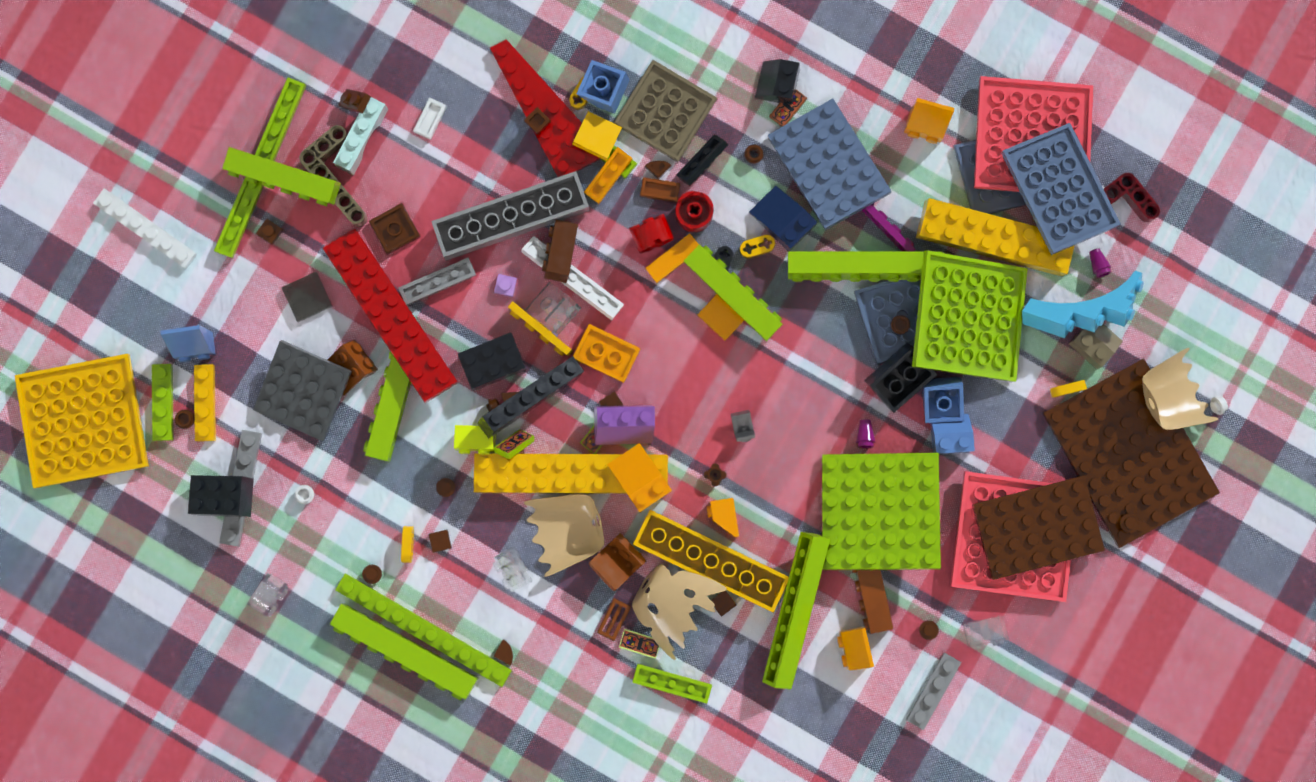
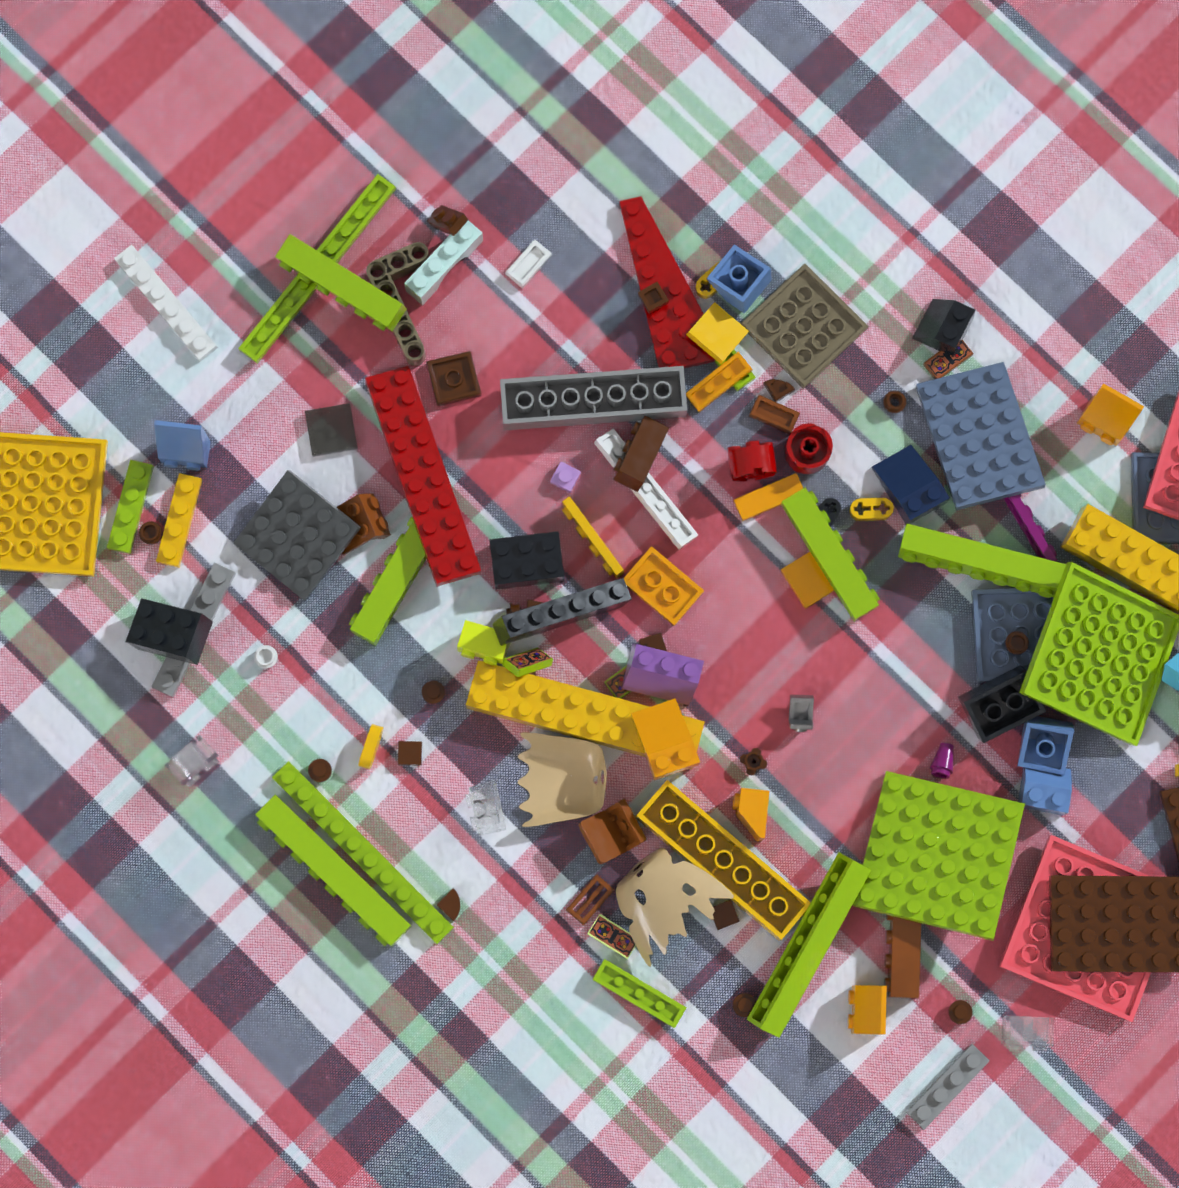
camera: 10 degrees right, 5 degrees down
(269, 231) = (308, 344): reddish brown plate -> none
(437, 281) = (487, 451): light grey plate -> none
(553, 309) = (614, 518): clear slope -> none
(702, 160) = (832, 392): black plate -> none
(756, 670) = (743, 1004): none -> reddish brown plate

